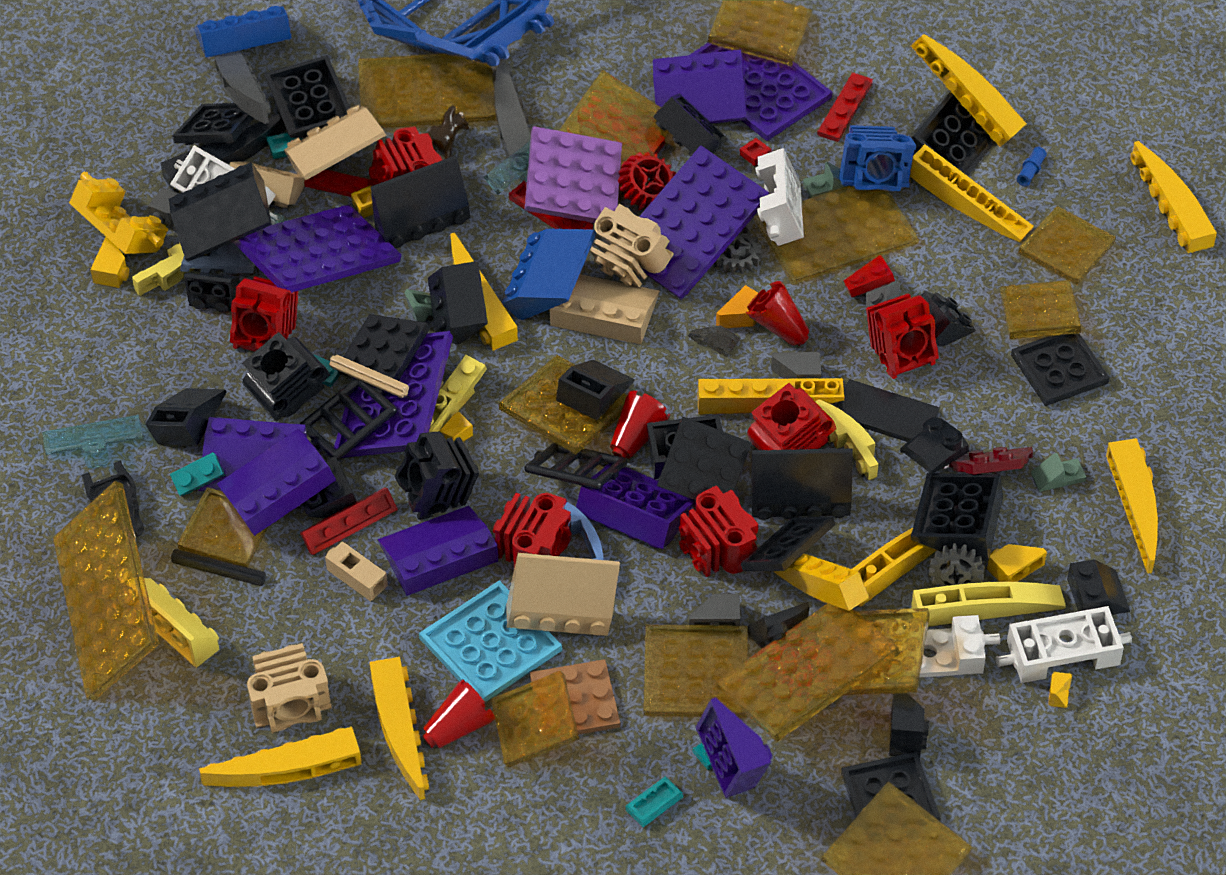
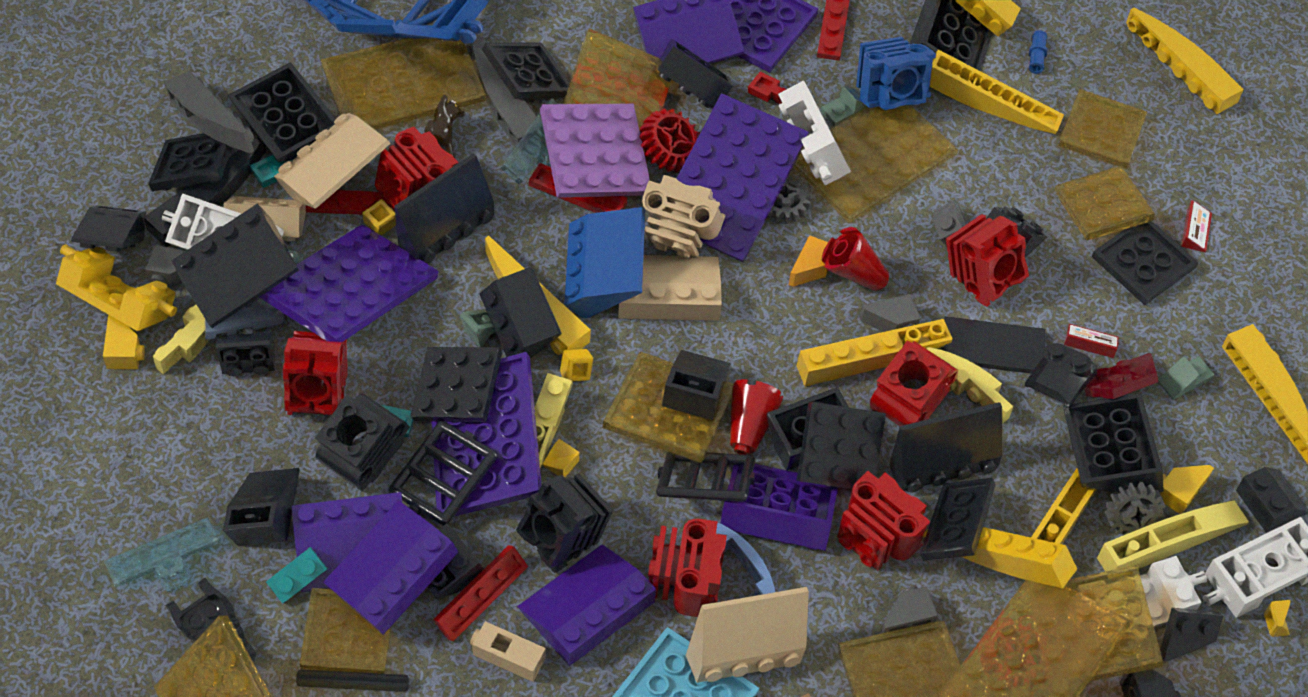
camera: 20 degrees left, 5 degrees up
(129, 166) = (110, 228): none -> black slope
(243, 31) = (189, 51): blue slope -> none
(369, 376) = (454, 420): tan axle -> none
(497, 355) = (576, 364): none -> yellow slope
(537, 97) = (527, 69): none -> black plate
(716, 337) = (797, 298): clear smoke slope -> none
(775, 625) = (977, 612): black slope -> none
(869, 277) = (926, 201): red wing -> none
(968, 681) = (1189, 631): none -> black wing
(980, 426) = (1091, 340): none -> red slope
(1123, 348) = (1196, 227): none -> slope

